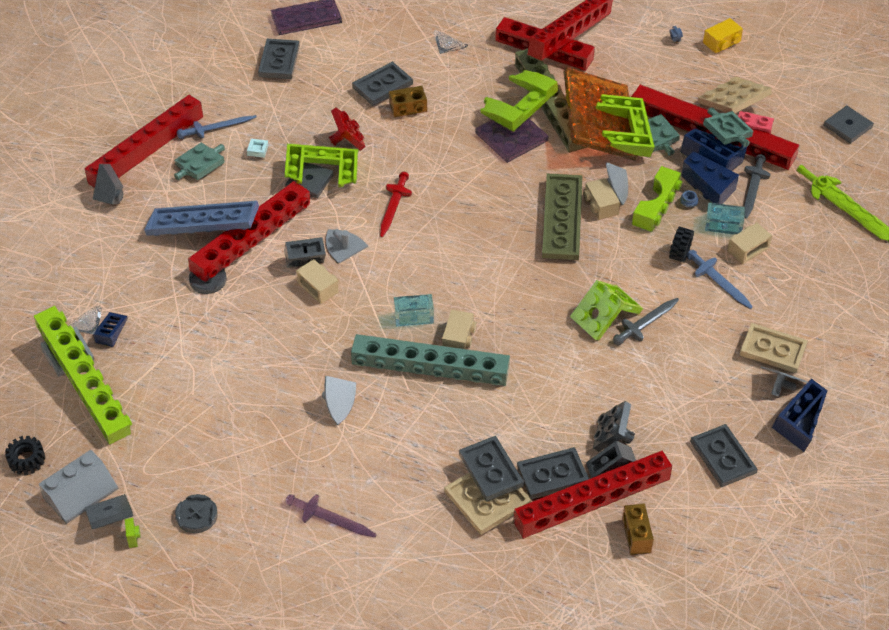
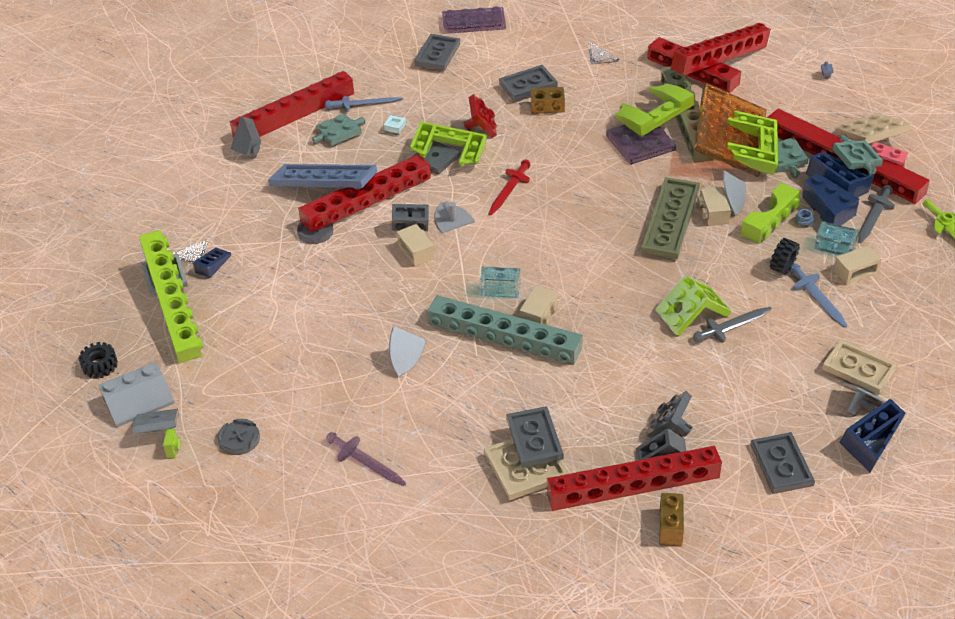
camera: 15 degrees right, 5 degrees down
(551, 472) = (596, 450): dark grey plate -> none
(722, 35) = (874, 75): yellow piece -> none

